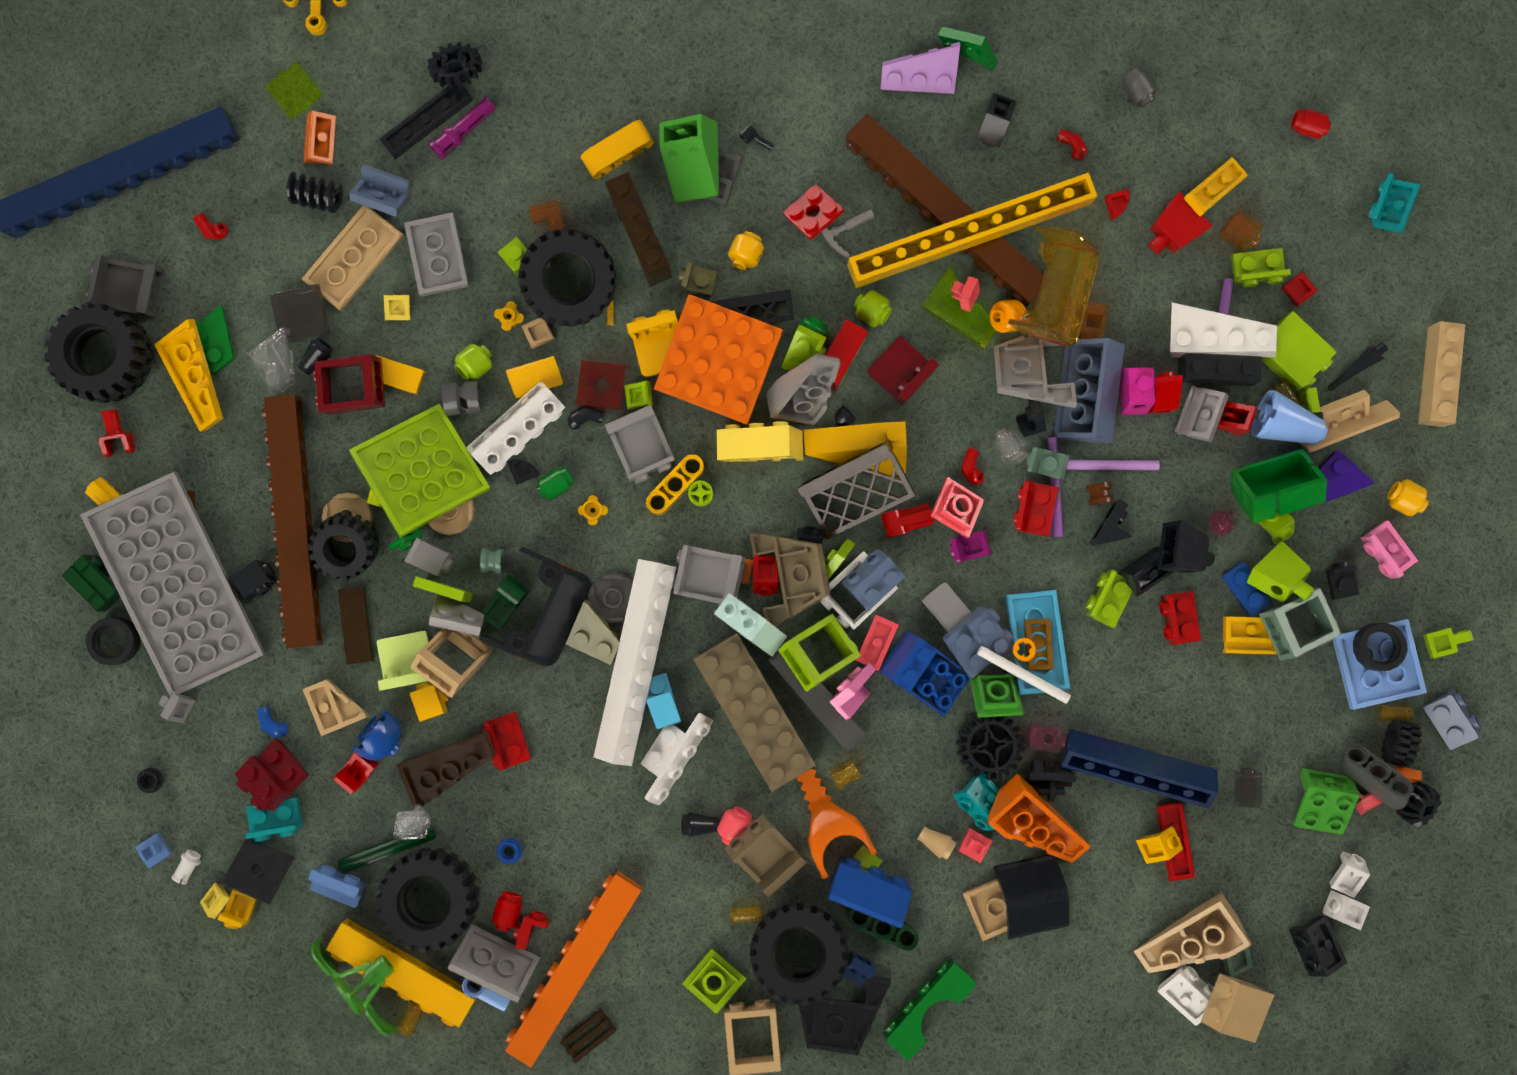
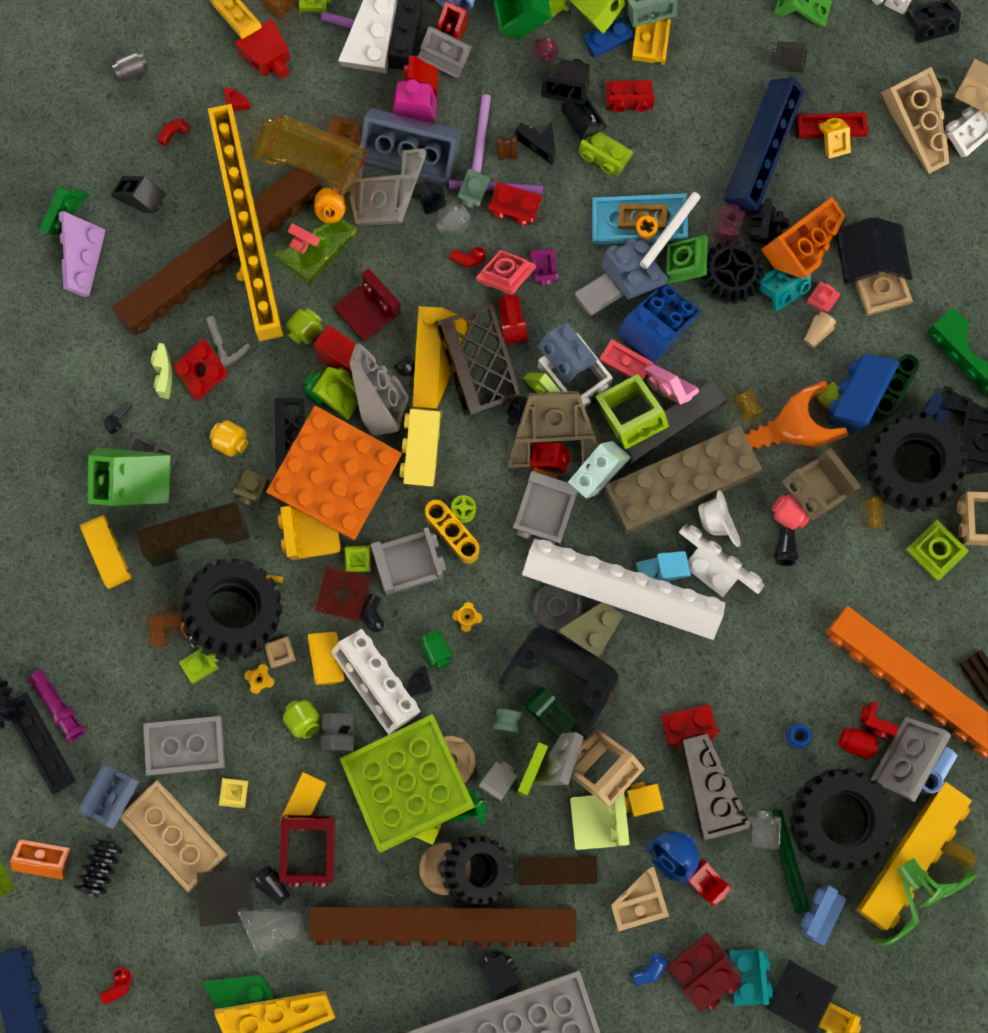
camera: 85 degrees left, 10 degrees down
(718, 753) = (716, 518): none -> white piece
(818, 172) = (162, 365): none -> yellowish green slope

